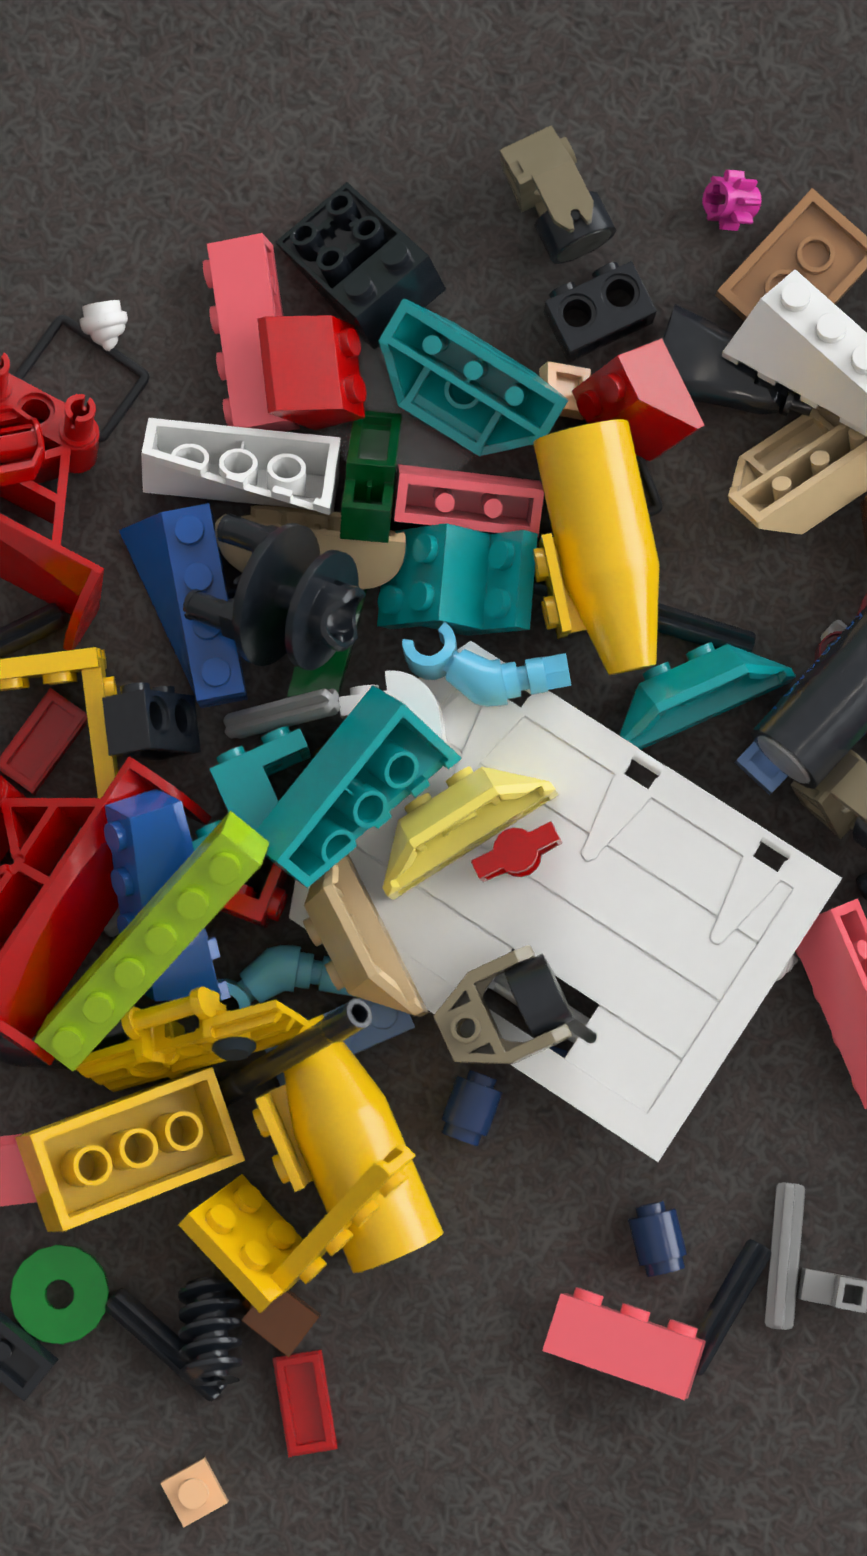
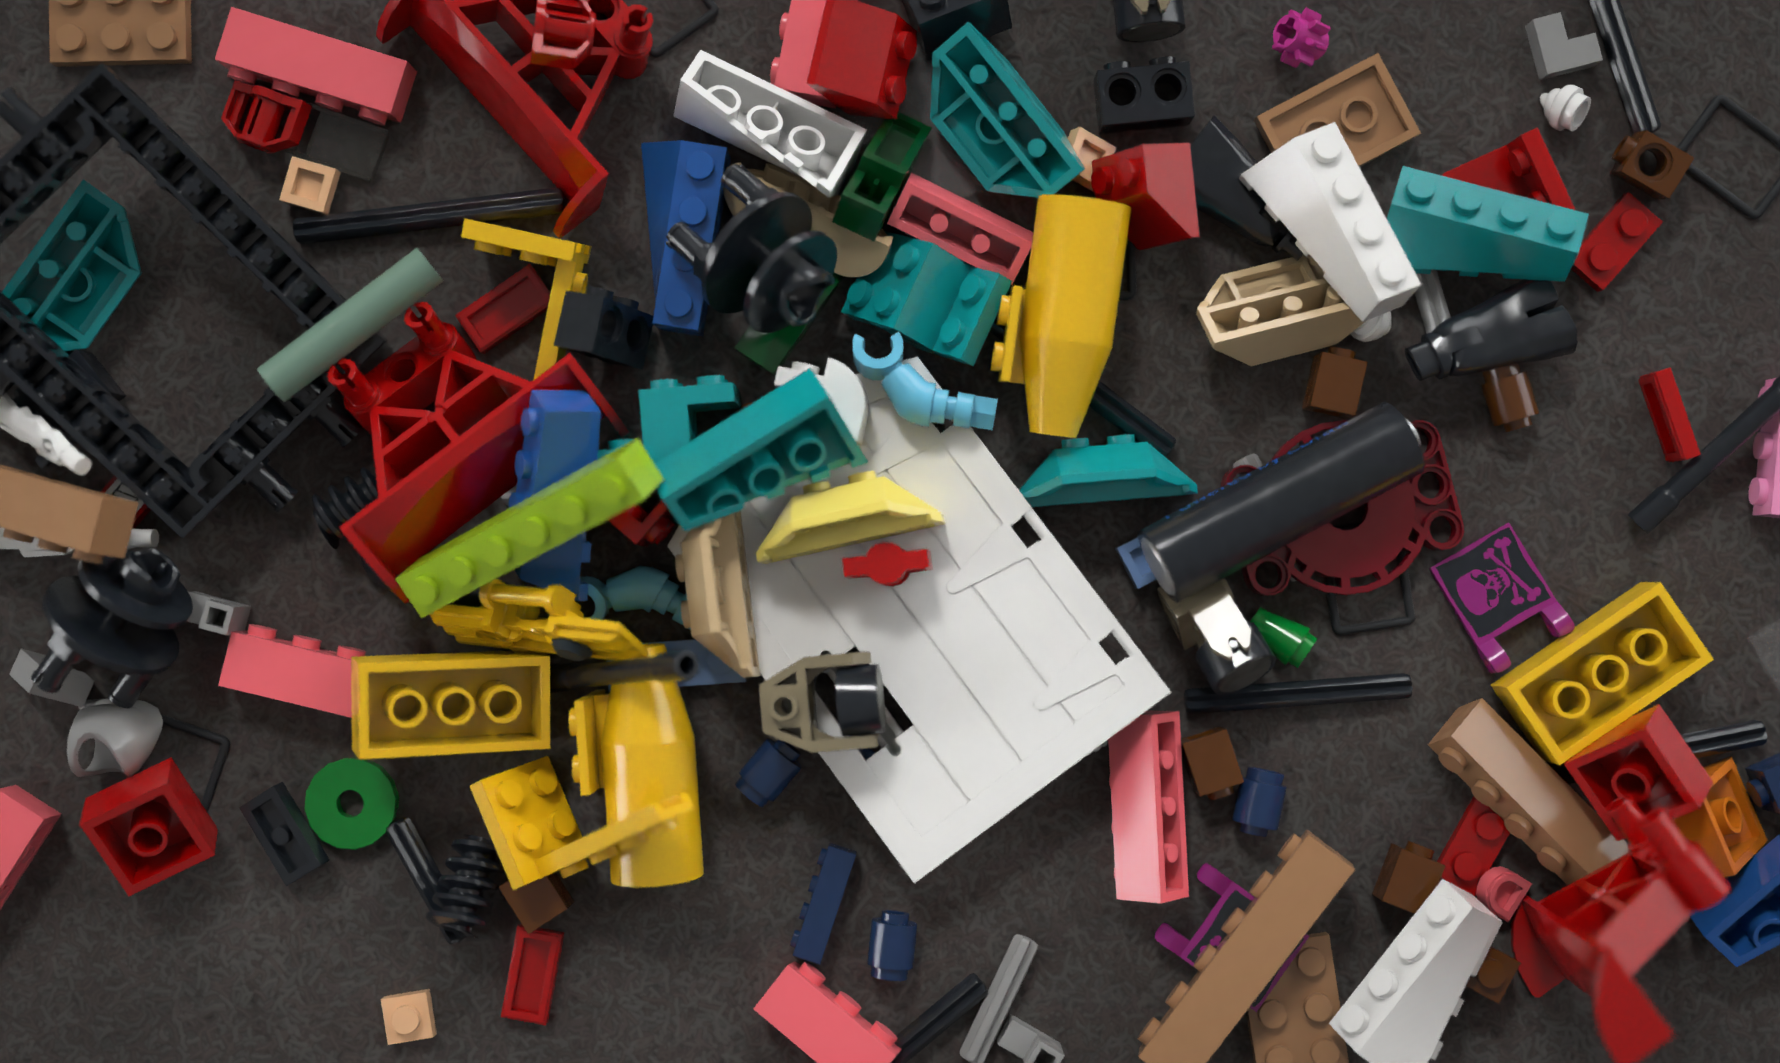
camera: 25 degrees right, 5 degrees up
(282, 713) = (725, 362): light grey axle -> none
(574, 1221) = (824, 903): none -> dark blue piece

